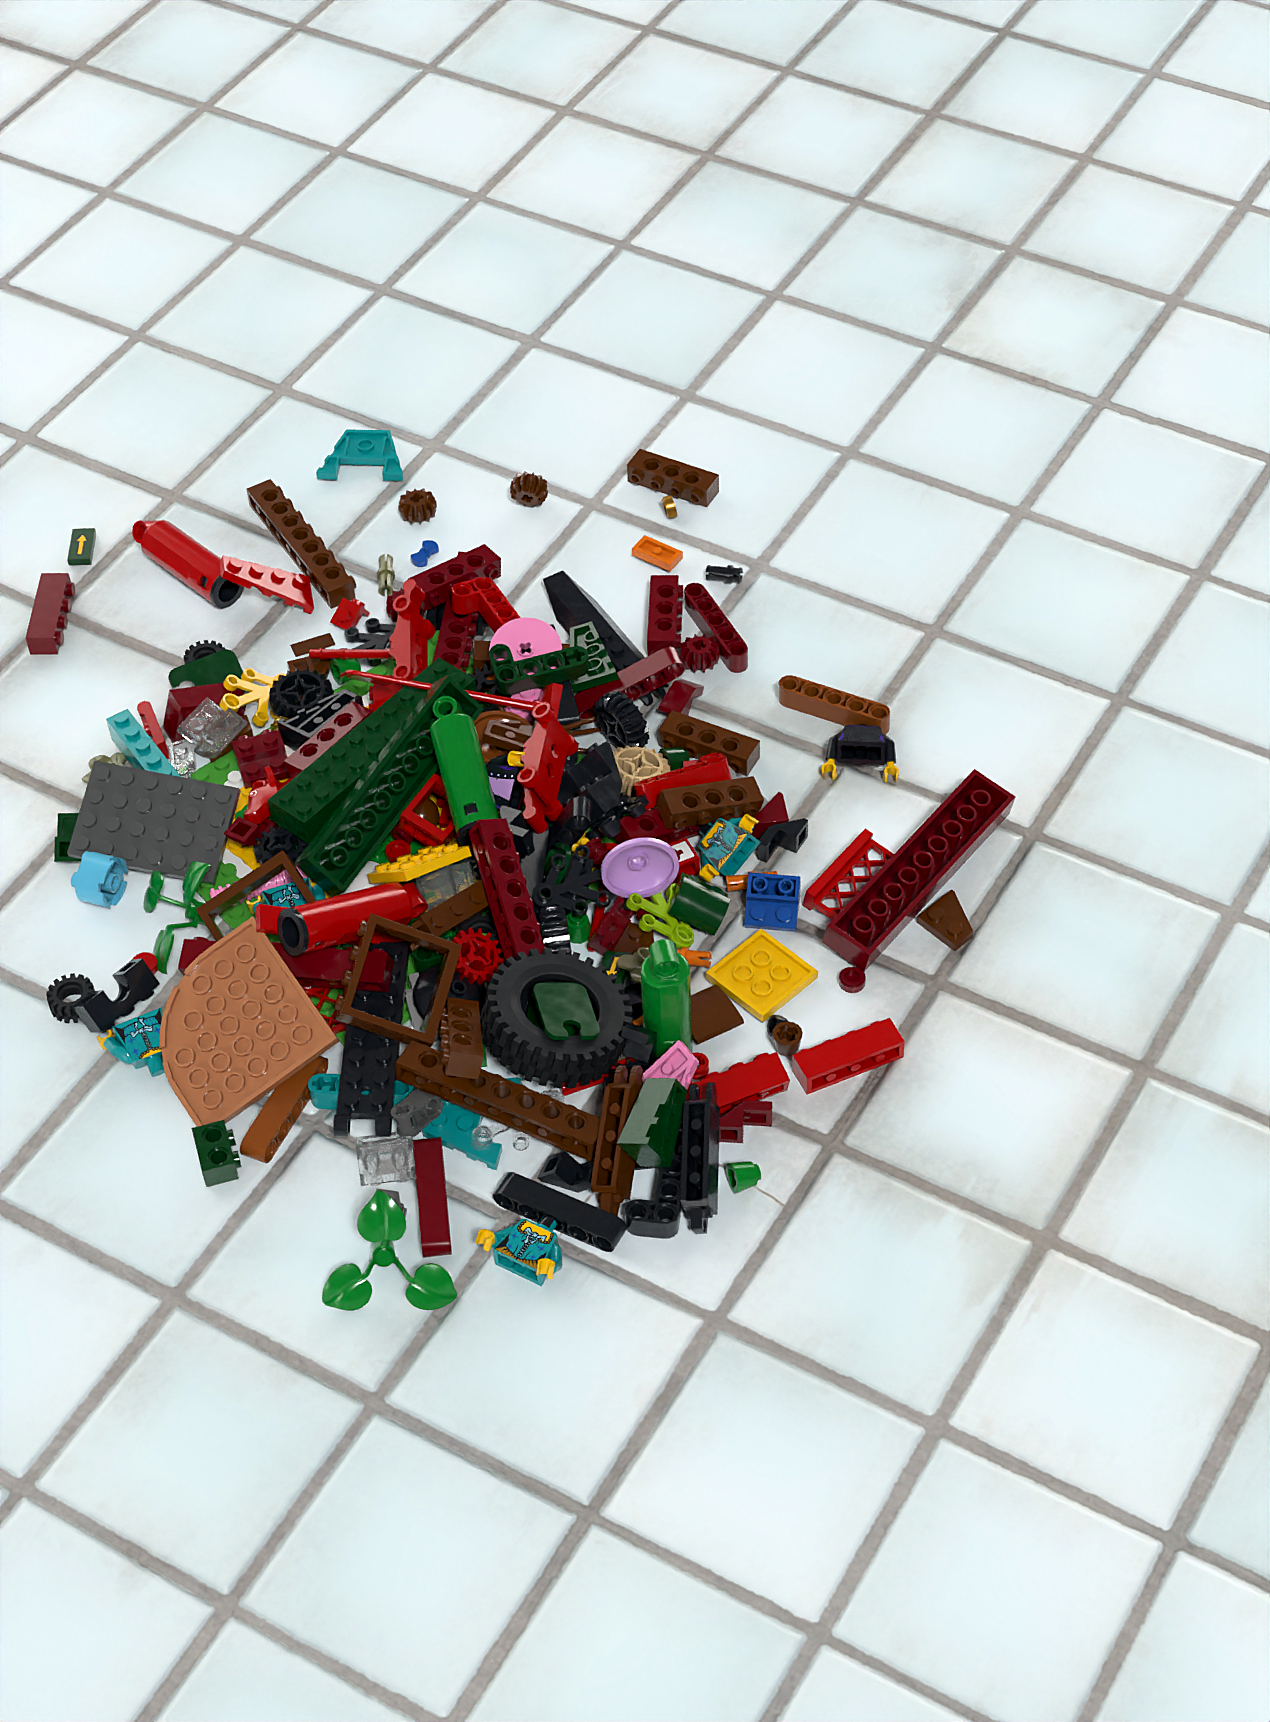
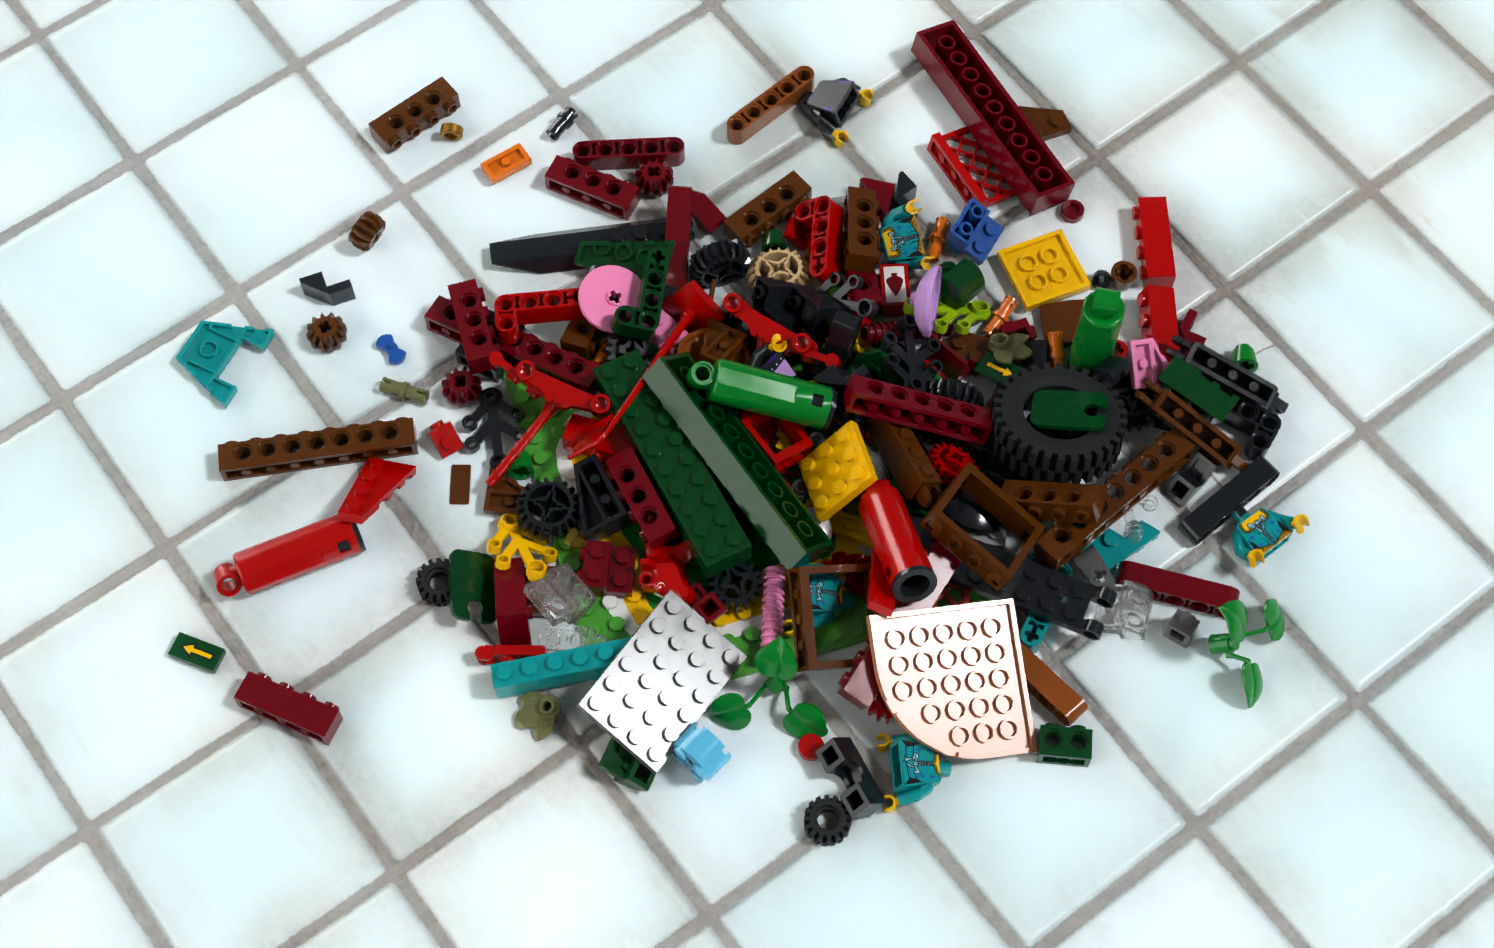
camera: 70 degrees left, 15 degrees up
(462, 491) = (335, 294): none -> black slope

